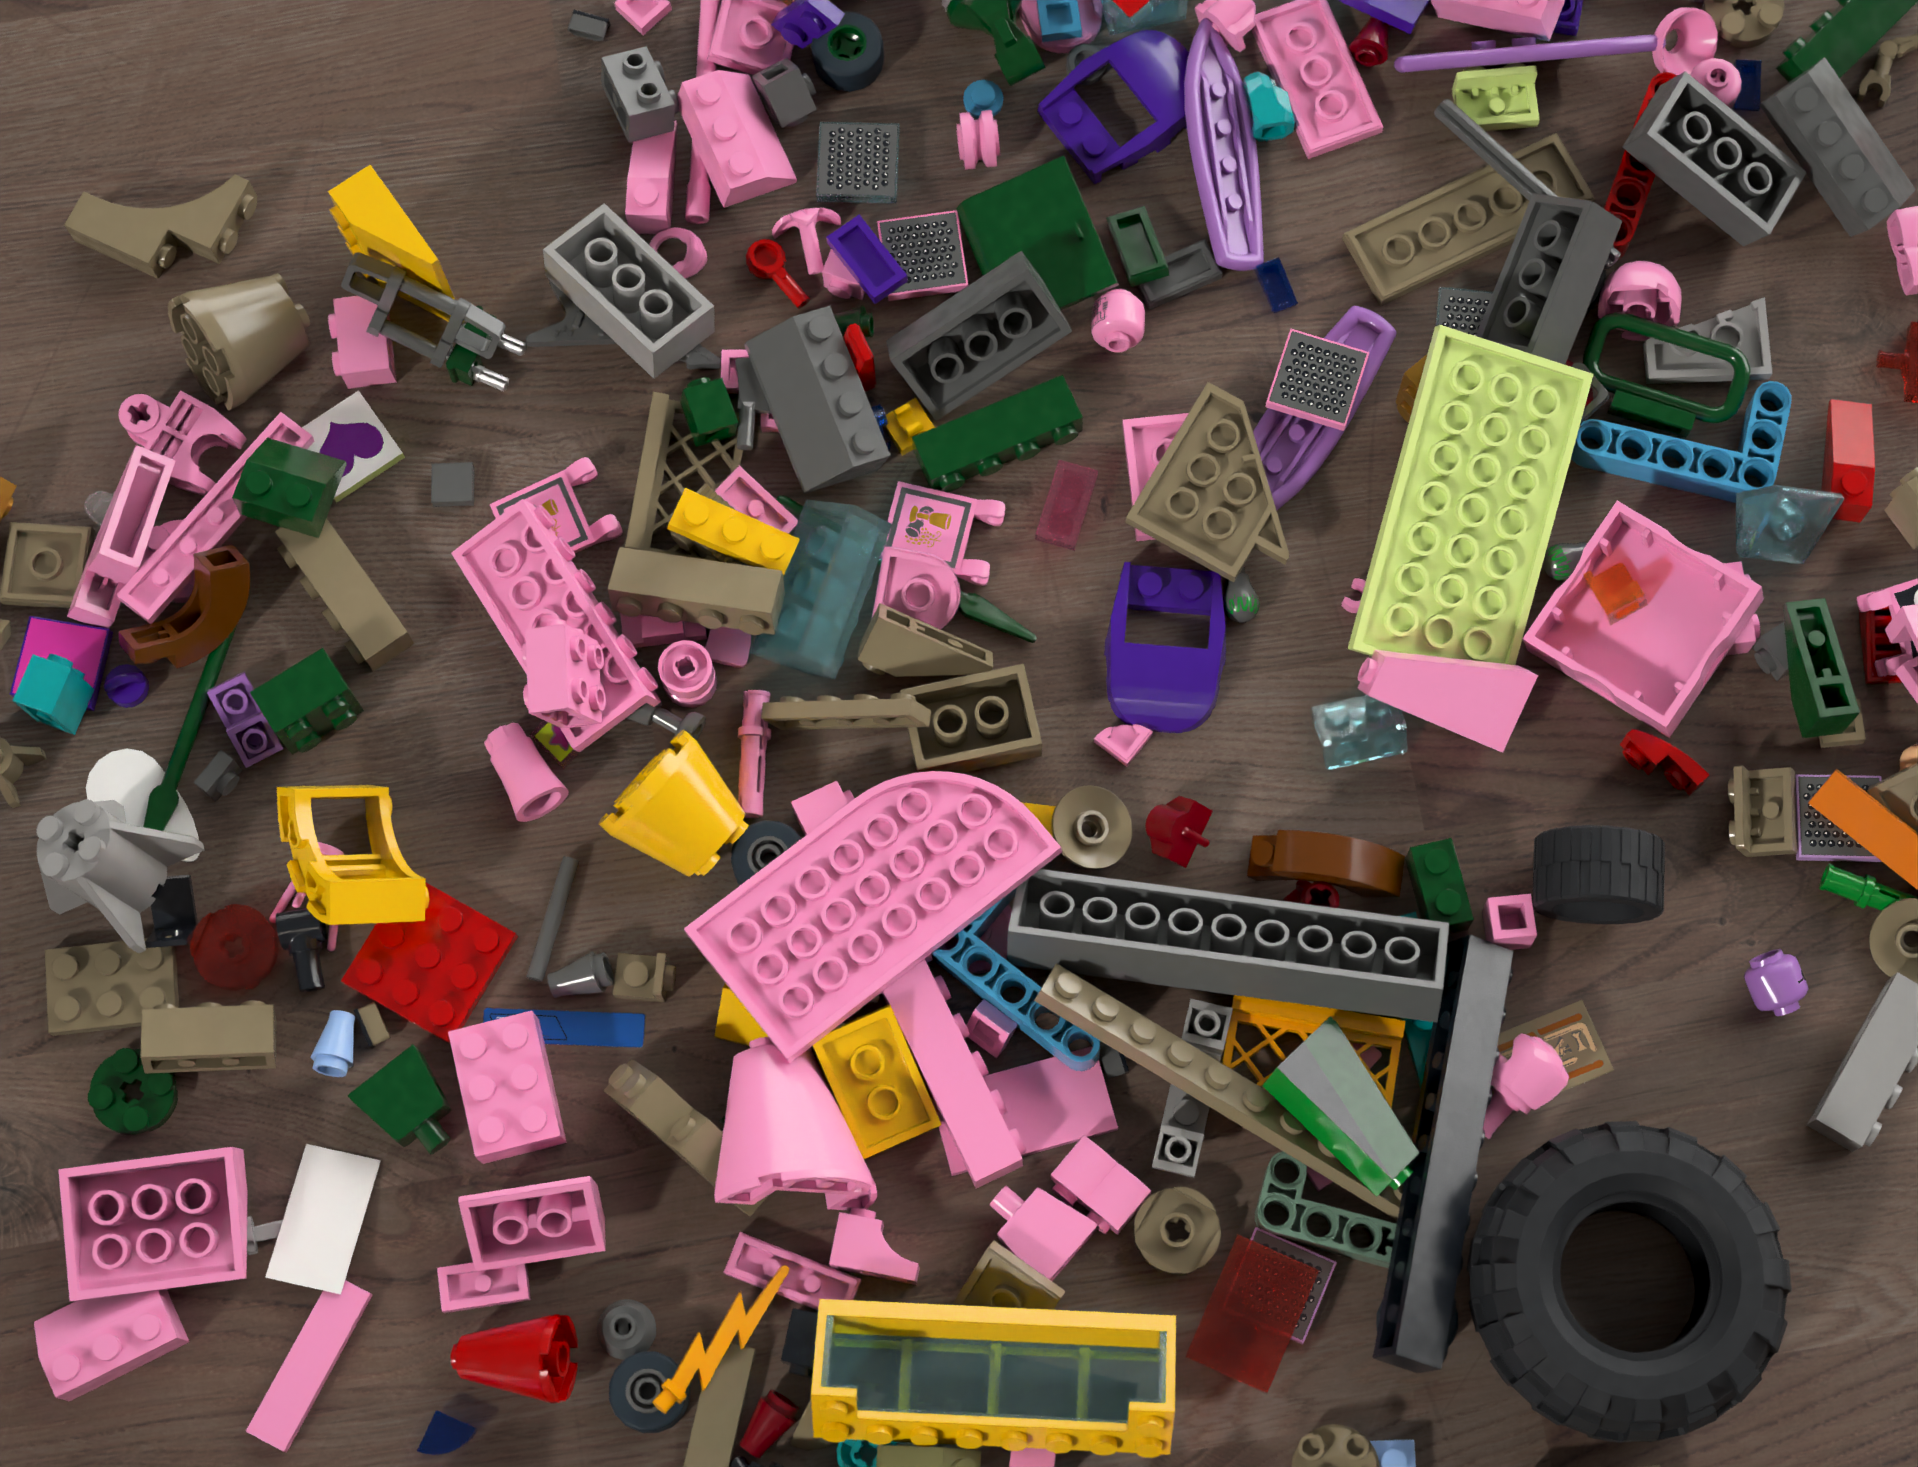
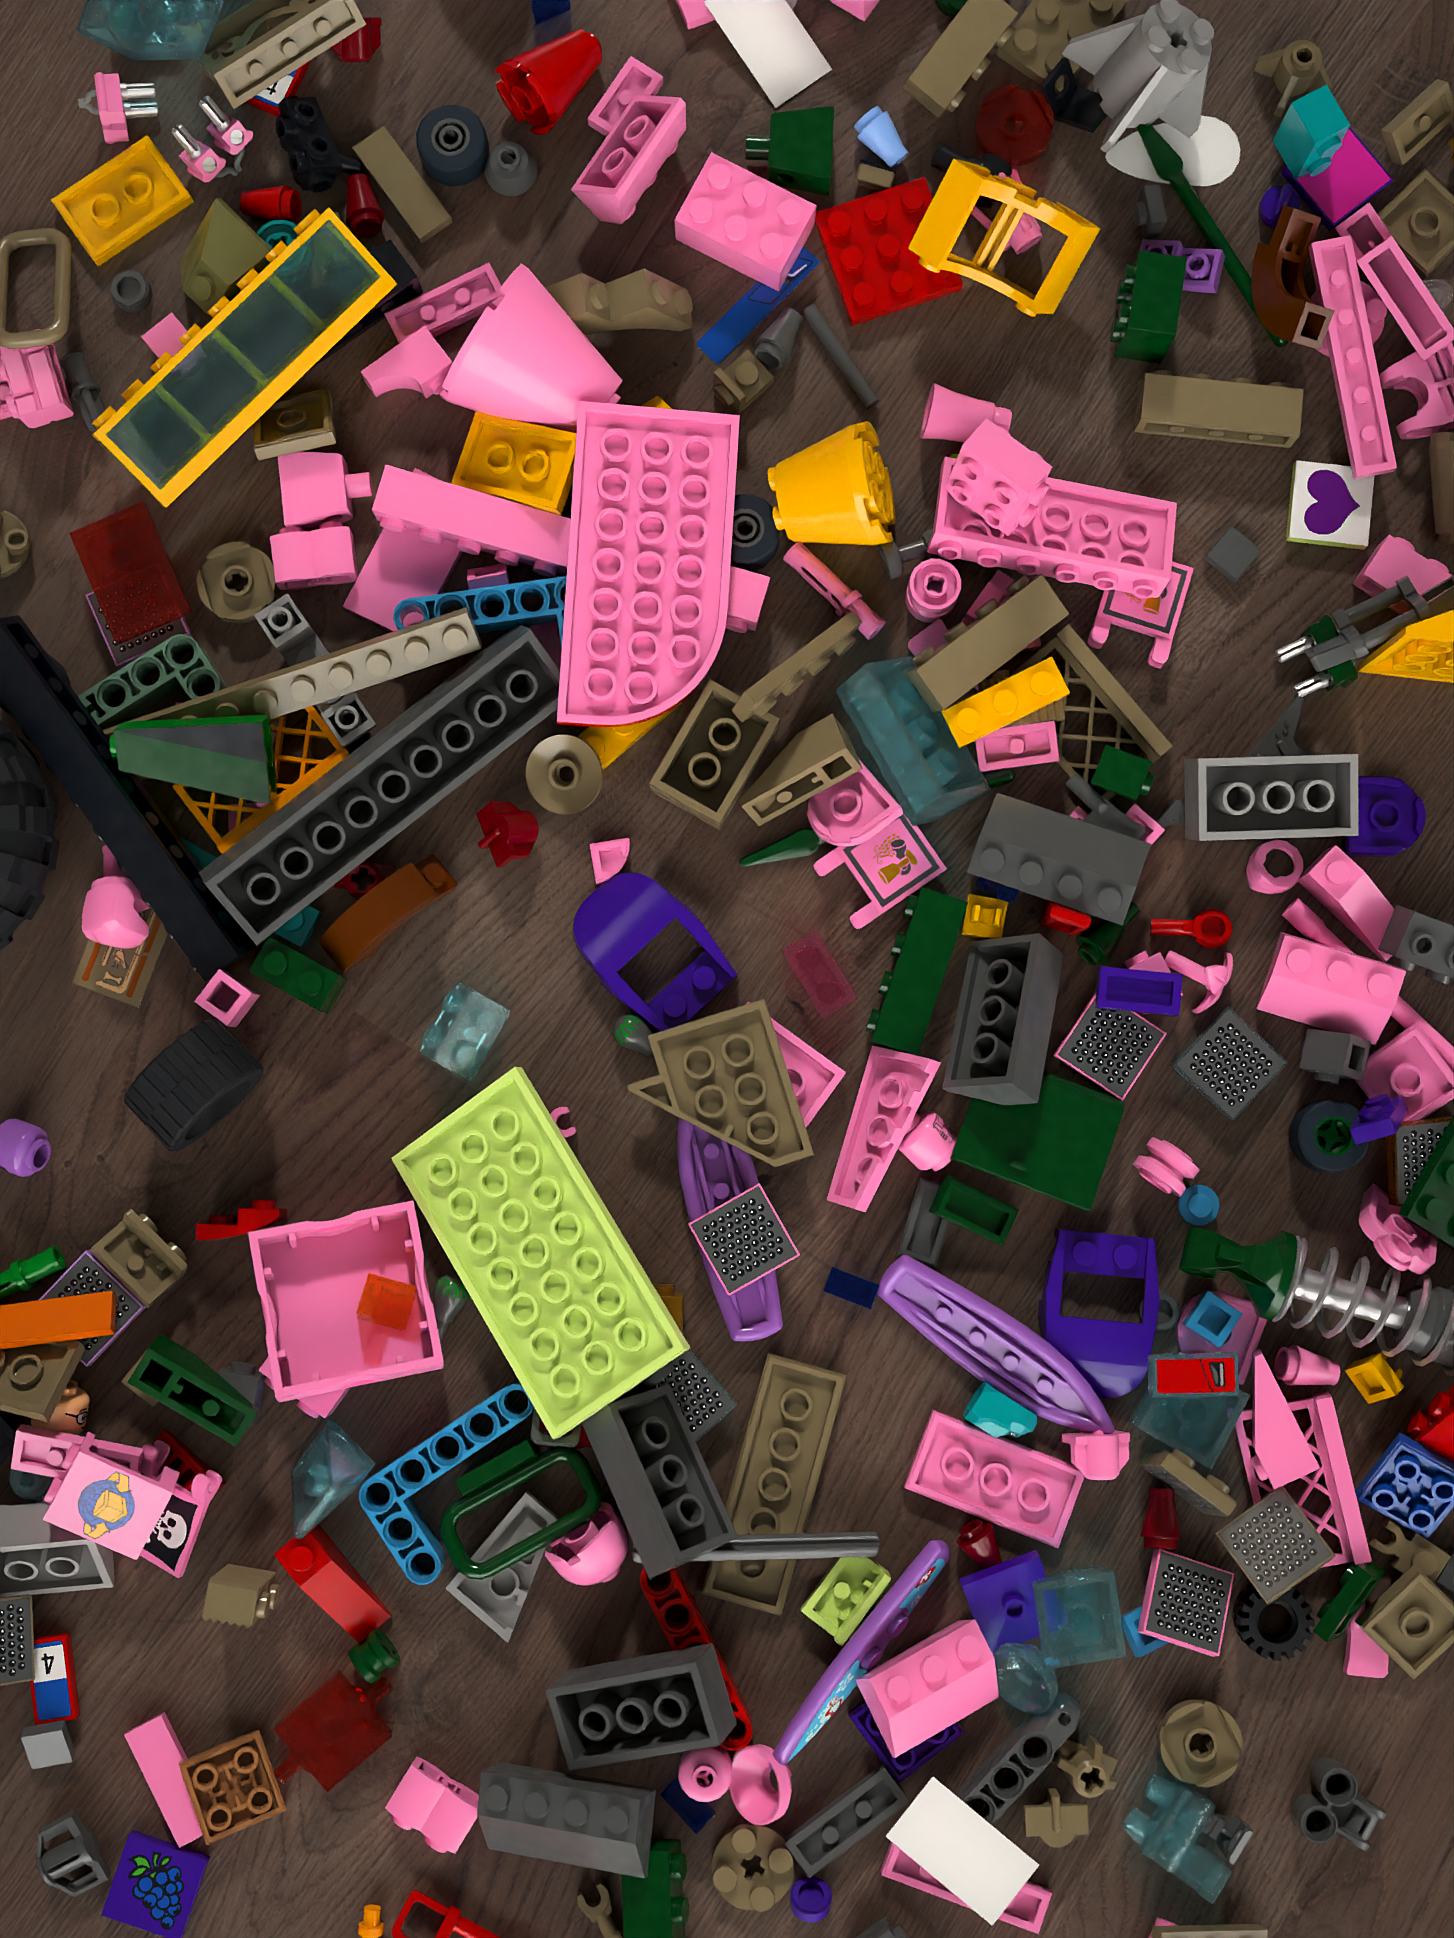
camera: 130 degrees right, 10 degrees up
(288, 486) = (1329, 420): dark green slope -> none
(560, 203) = (1388, 818): none -> dark purple tile
(707, 1361) = (431, 188): light orange piece -> none
(1131, 365) = (881, 1115): none -> bright pink wing
(1457, 694) = (421, 1109): bright pink slope -> none
(1868, 382) = (374, 1656): none -> dark green wheel

